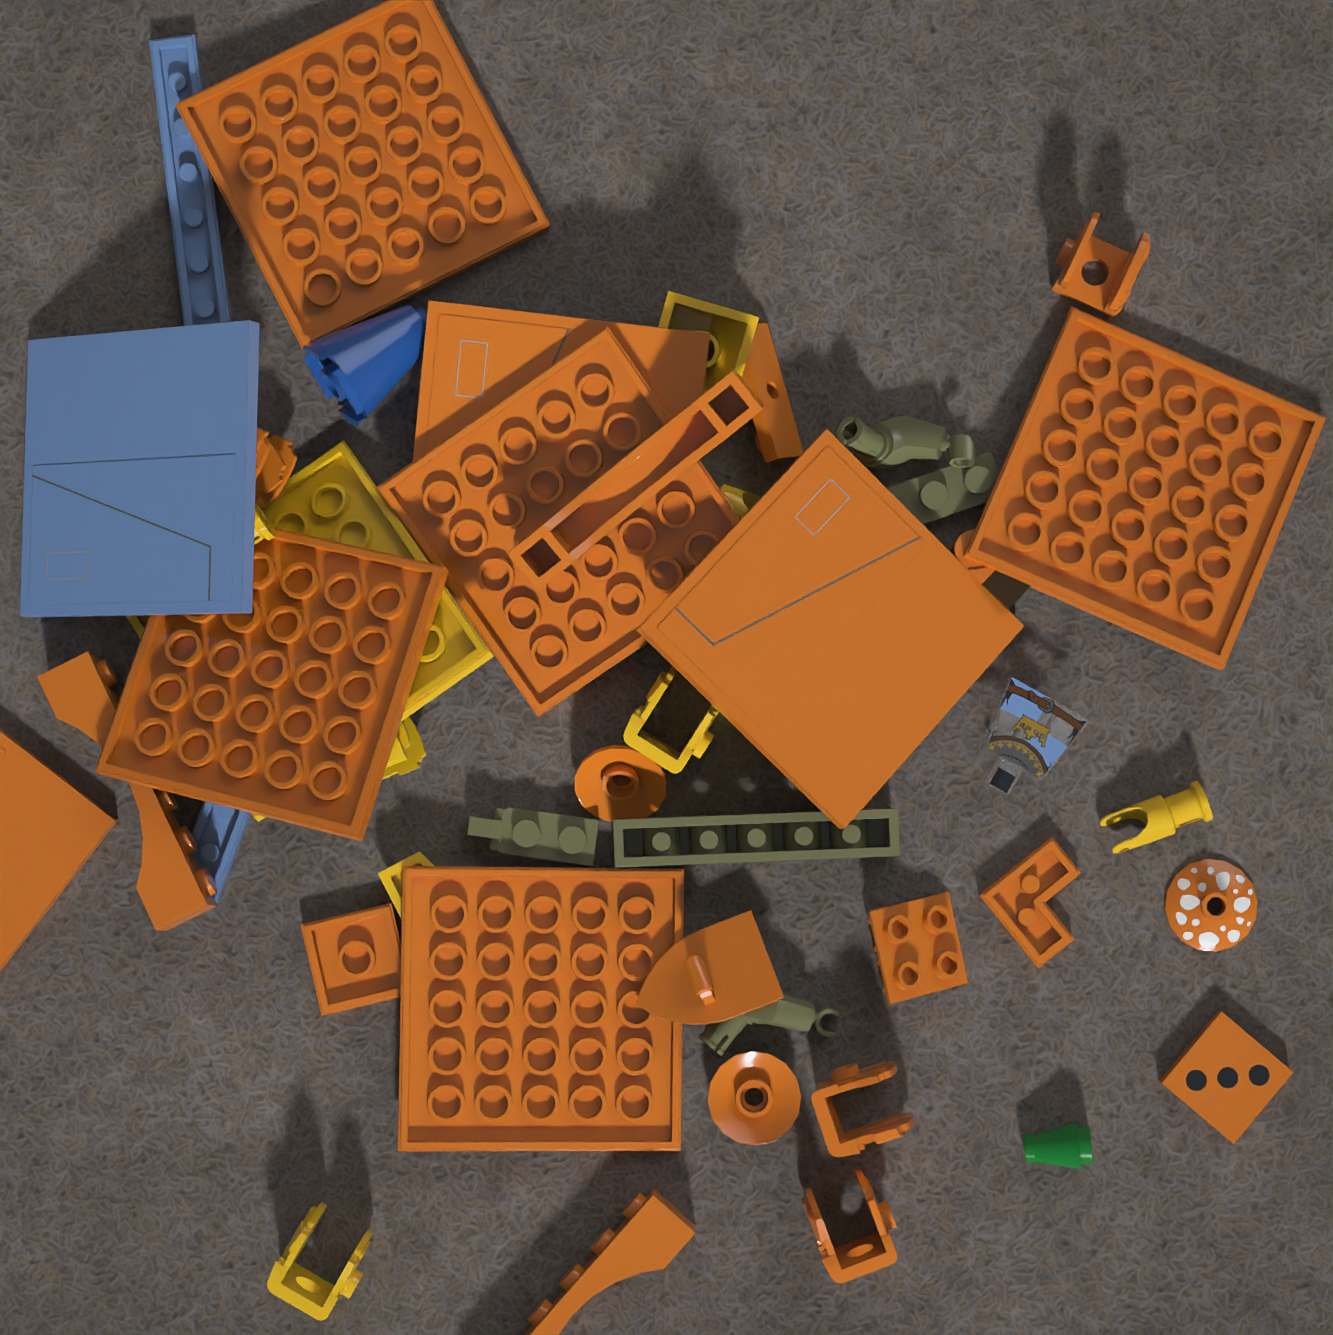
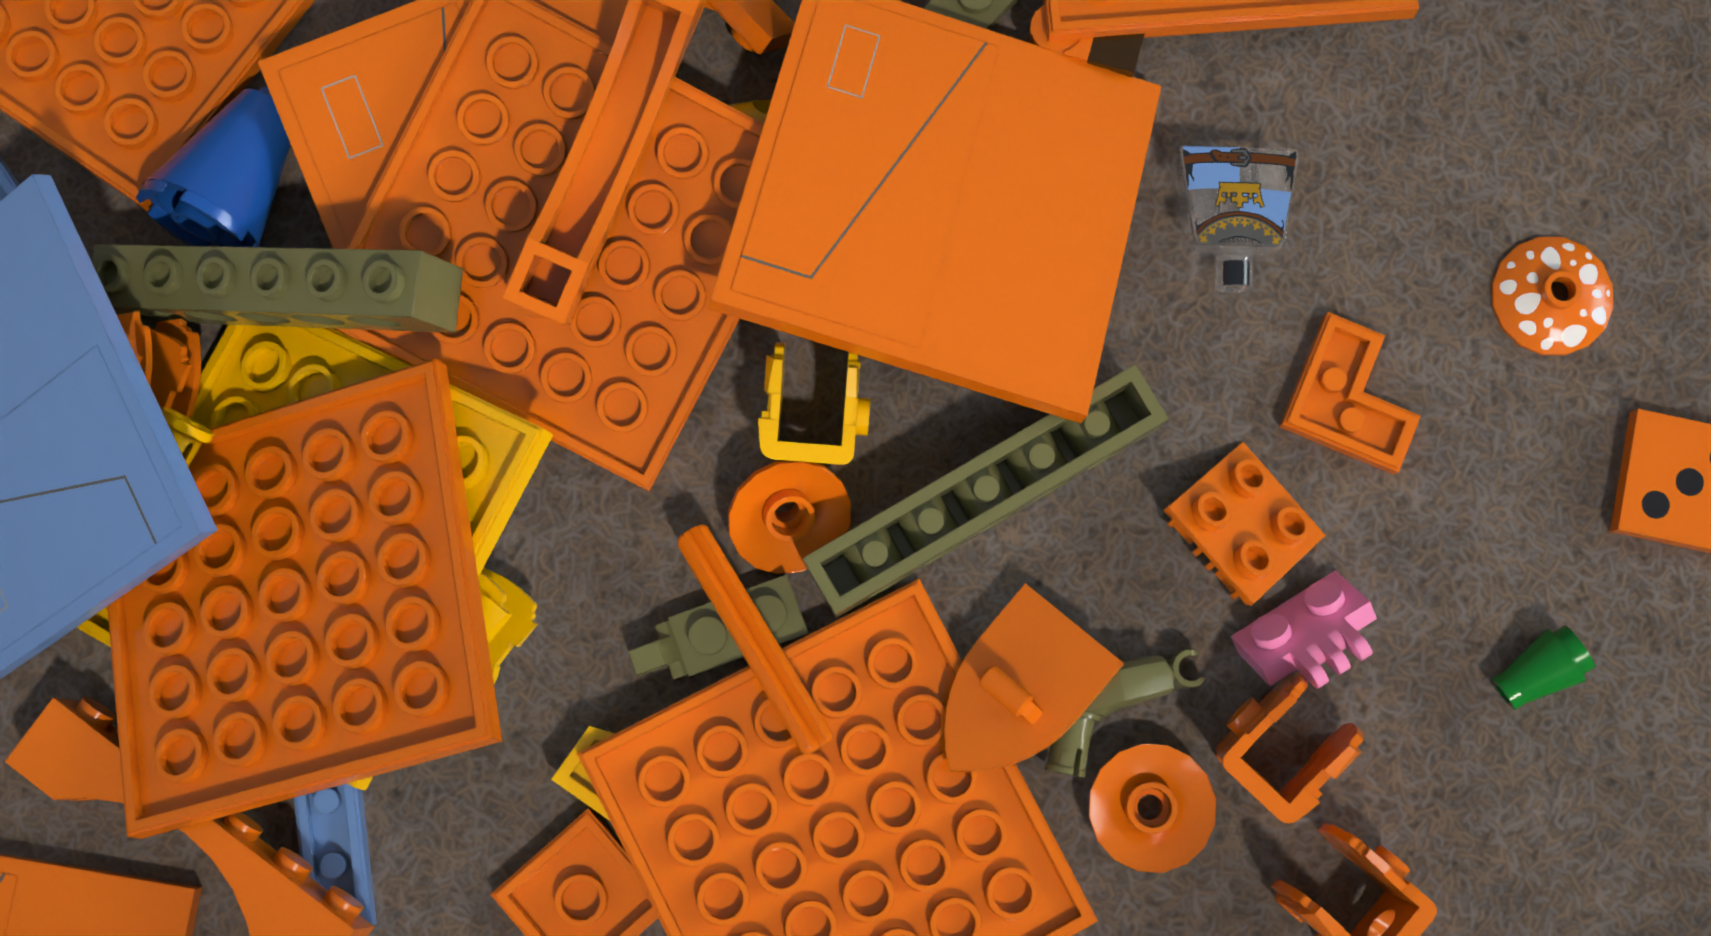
camera: 30 degrees left, 5 degrees down
(369, 464) = (282, 286): none -> olive brick
(555, 853) = (754, 639): none -> orange axle
(918, 1040) = (1308, 632): none -> bright pink hinge
(1162, 815) = (1442, 219): yellow piece -> none

